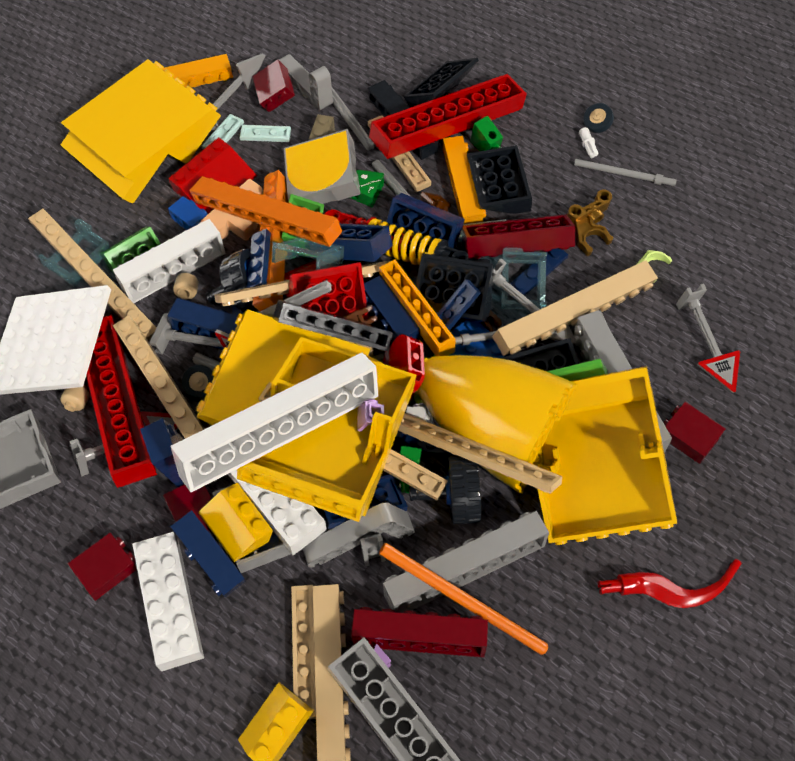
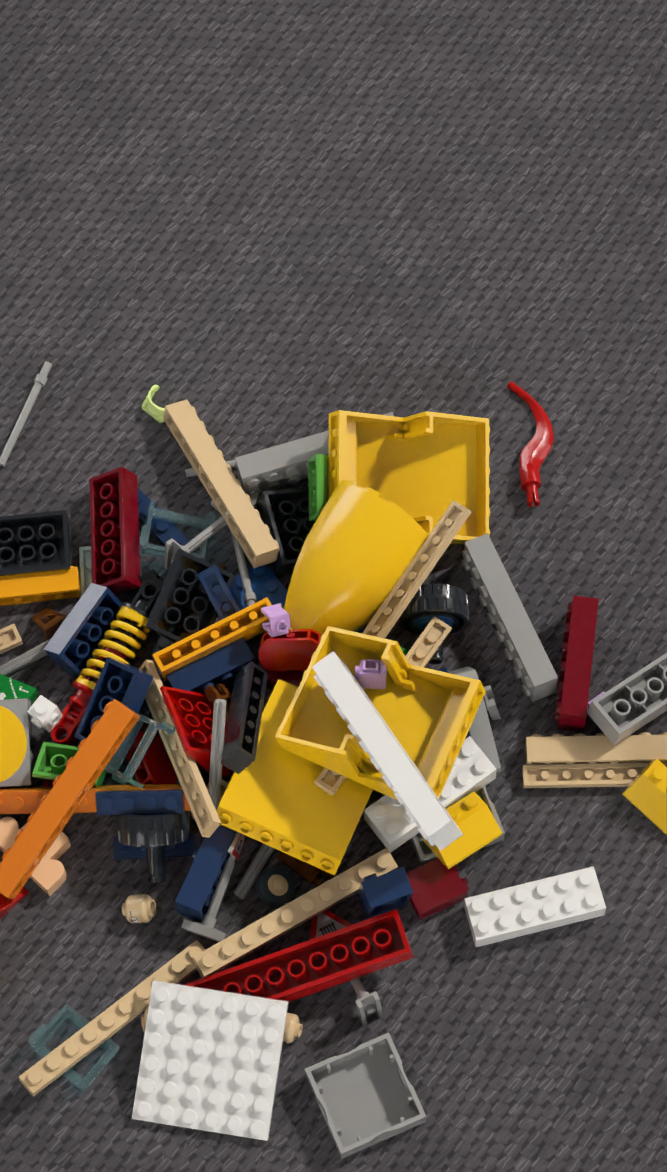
camera: 85 degrees left, 5 degrees up
(103, 565) = (494, 976): dark red brick -> none
(130, 248) = (83, 974): bright green slope -> none
(166, 261) = (102, 918): white brick -> none
(186, 213) = (30, 909): blue brick -> none
(208, 554) = (494, 858): dark blue brick -> none
(344, 198) = (44, 714): none -> white brick
(429, 343) = (278, 618): none -> lavender window
(463, 598) = (550, 617): orange piece -> none
(586, 218) = (89, 462): pearl gold piece -> none
(693, 432) = (374, 395): dark red brick -> none
(720, 367) = (296, 358): light grey piece -> none

